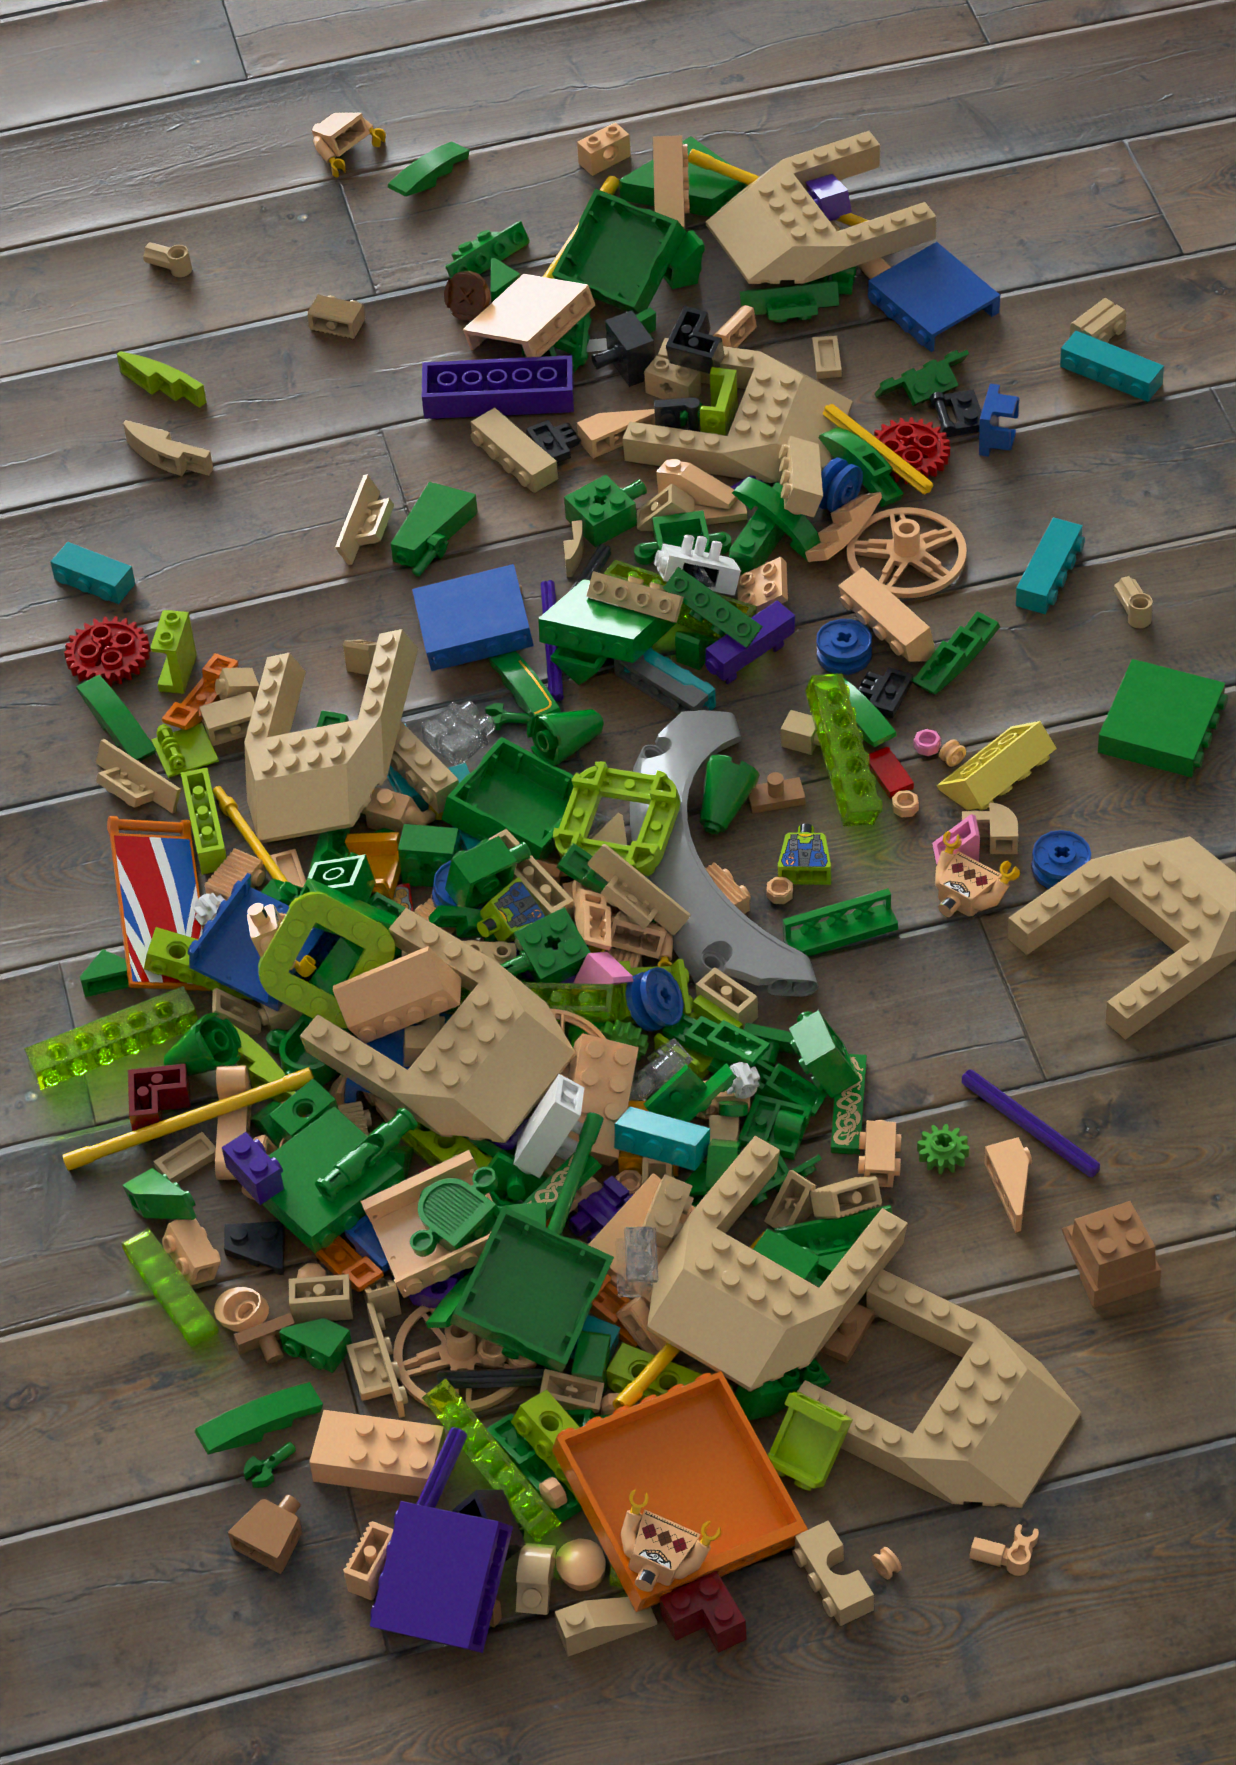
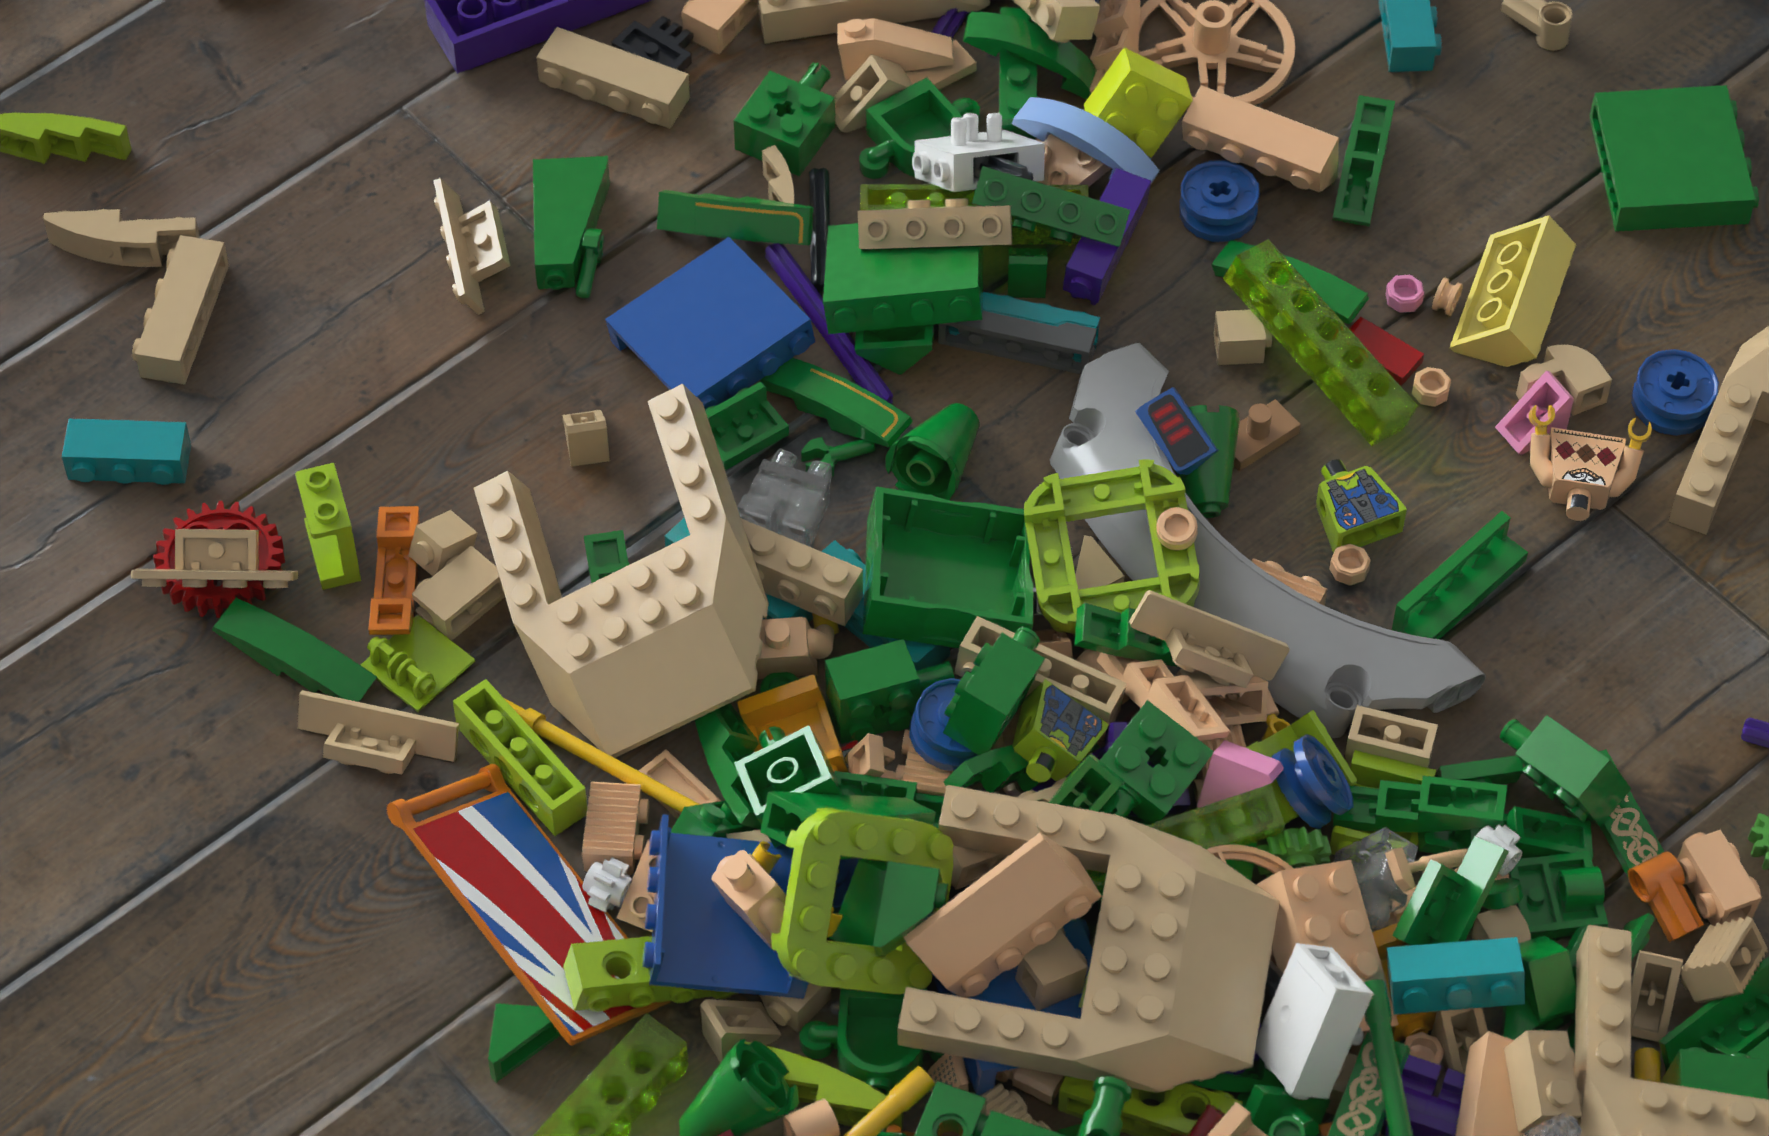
camera: 30 degrees left, 5 degrees up
(97, 644) = (215, 556): none -> tan bracket
(174, 503) = (181, 309): none -> tan brick
(343, 963) = (907, 900): none -> green slope
(407, 892) = (870, 758): none -> light nougat tile
(457, 679) = (745, 425): none -> green bracket
(499, 944) = (1088, 786): none -> green slope
(531, 556) = (735, 217): none -> green slope
(659, 820) = (1177, 528): none -> light nougat tile
(669, 1067) = (1402, 870): none -> light nougat piece
(704, 767) = (1176, 431): none -> slope
(775, 577) = (1085, 133): none -> light blue slope
(821, 566) = (1140, 99): none -> neon yellow piece
(840, 1145) = (1660, 884): none -> orange piece
(886, 691) = (1309, 238): black hinge -> none

